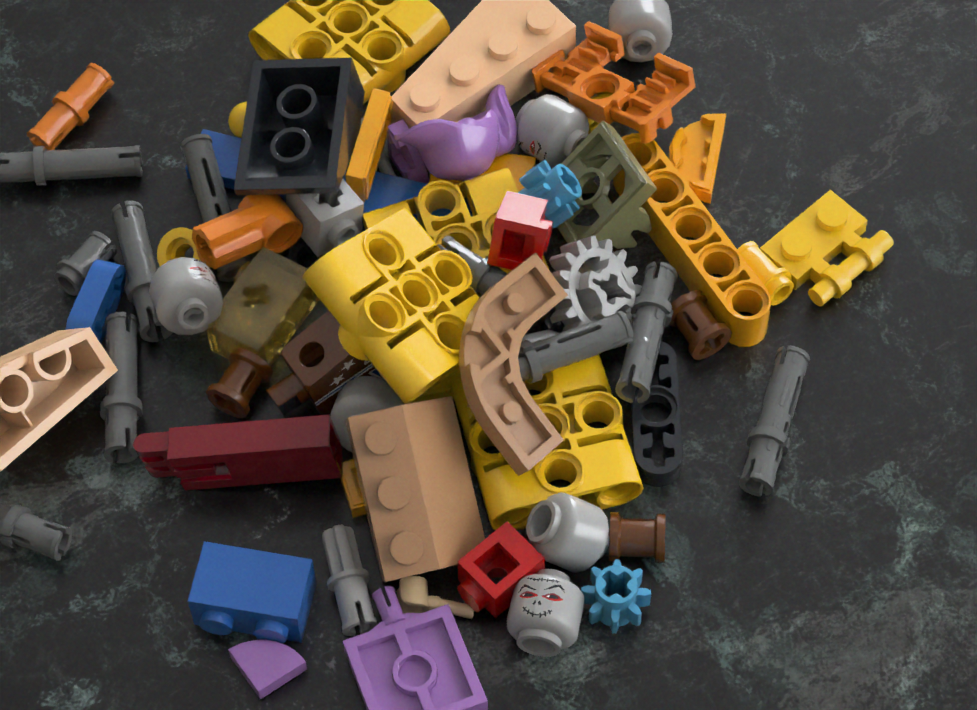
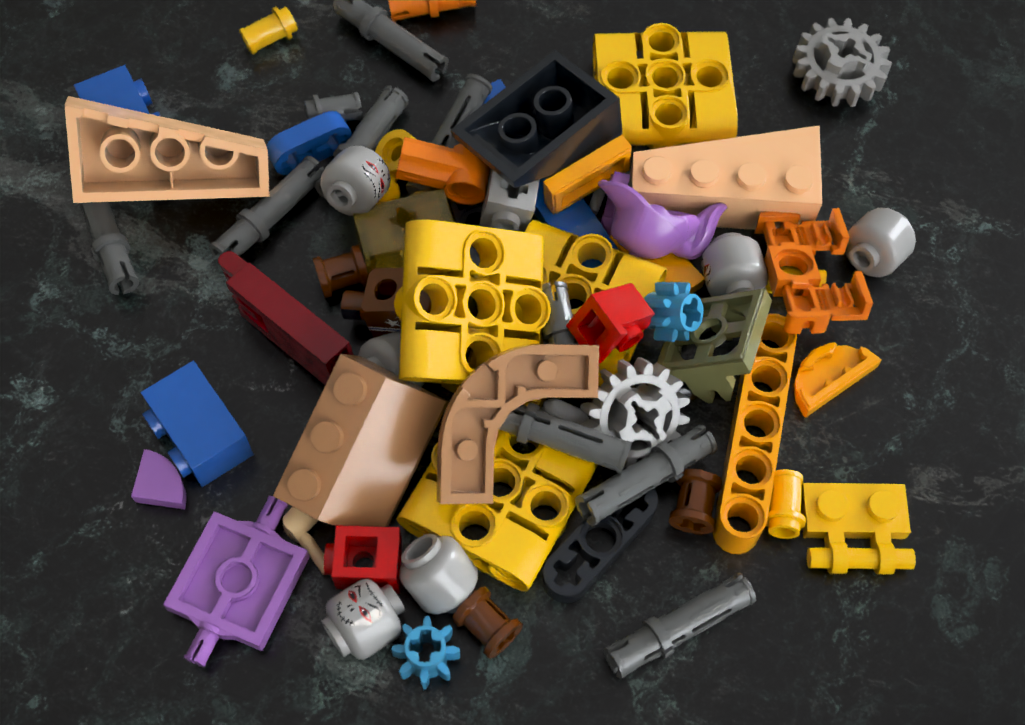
camera: 40 degrees right, 5 degrees up
(348, 580) = (265, 472): light grey axle -> none

